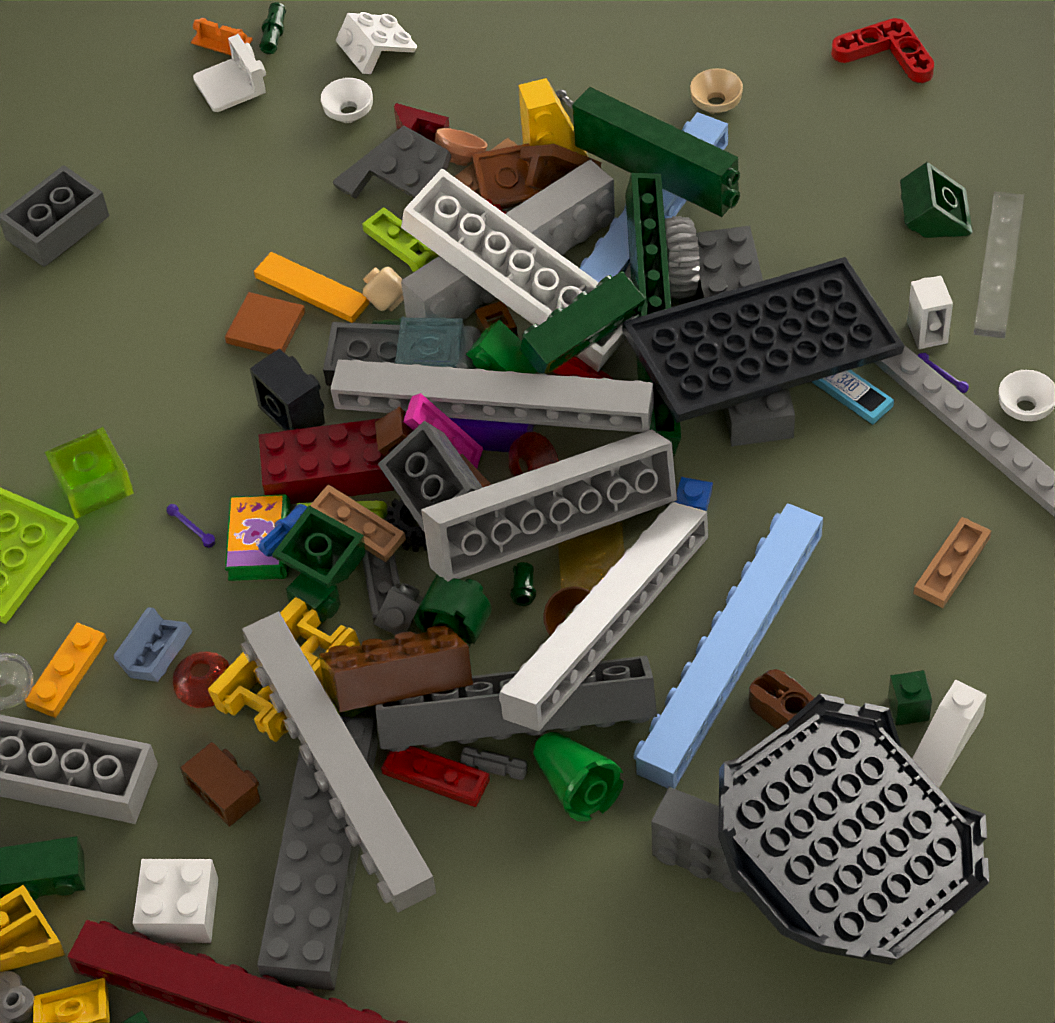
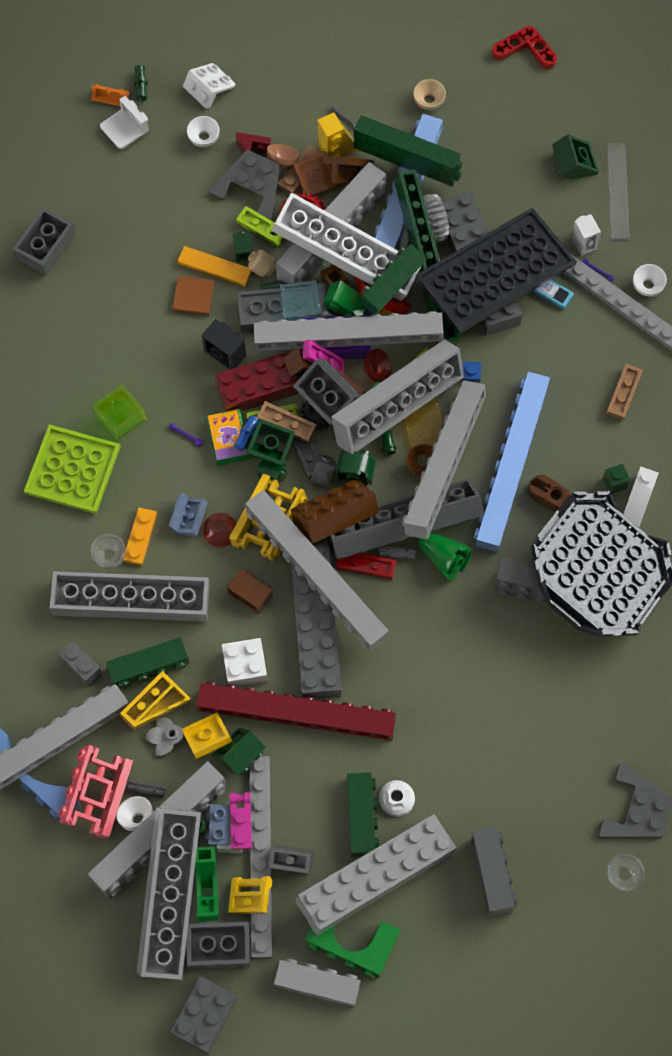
camera: 15 degrees left, 15 degrees up
(361, 259) = (242, 245): none -> dark green brick

